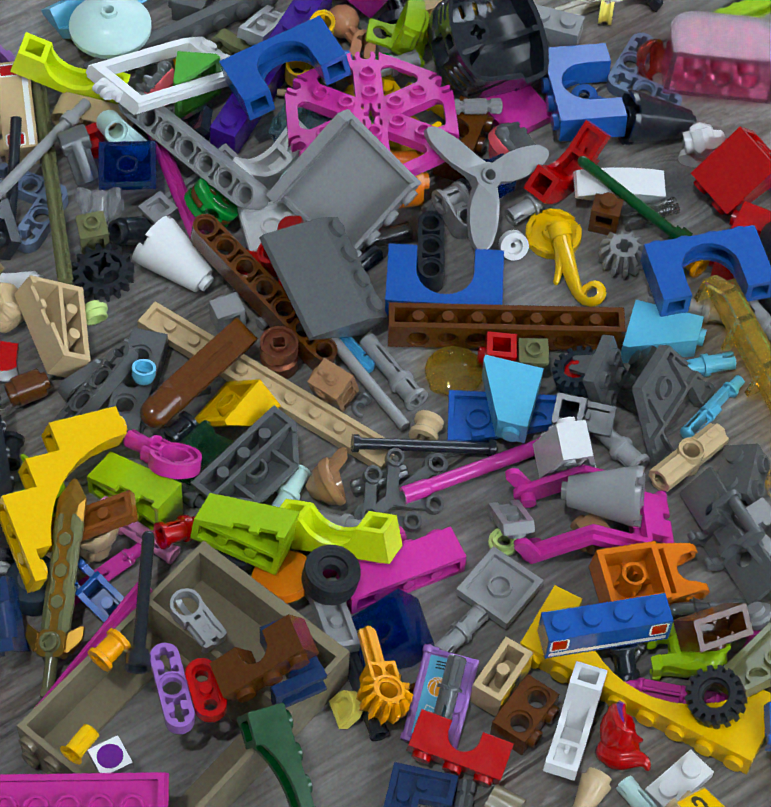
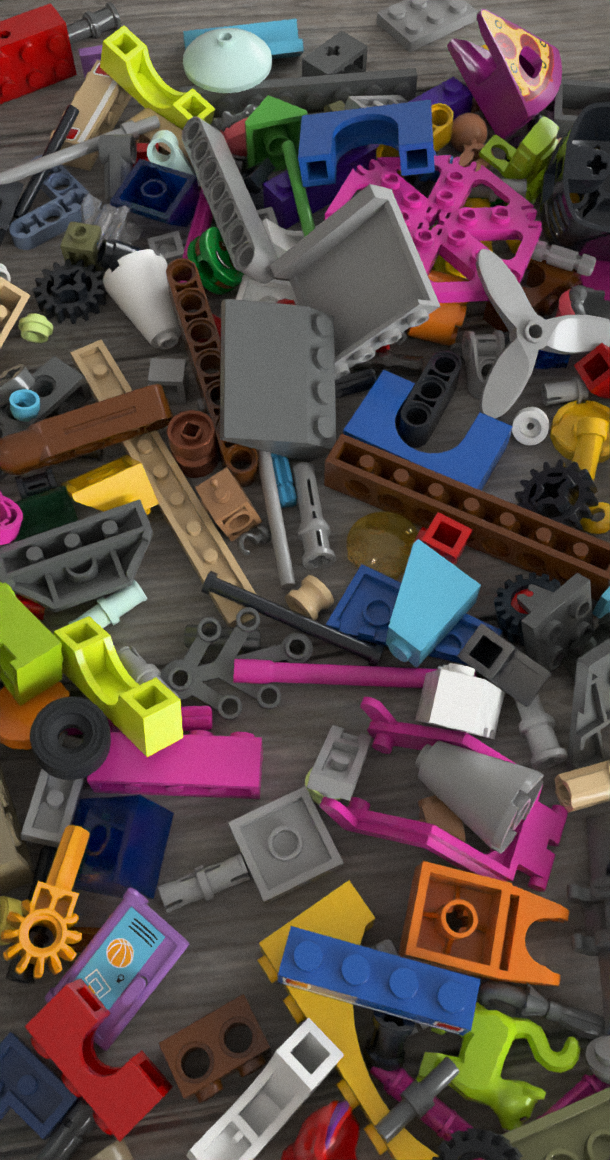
camera: 30 degrees right, 5 degrees up
(52, 187) = (66, 201): olive axle -> none
(112, 87) = (173, 101): white animal -> none
(251, 129) = (299, 191): none -> bright green bar
(325, 479) = (158, 614): medium nougat hat -> none
(450, 685) = (126, 967): dark grey axle -> none
(501, 676) = (210, 979): tan brick -> none
(533, 352) = (484, 560): olive bracket -> none
(559, 279) = (559, 493): none -> black gear
(659, 680) = (417, 1099): none -> dark grey bar
(713, 627) = (529, 1063): reddish brown brick -> none

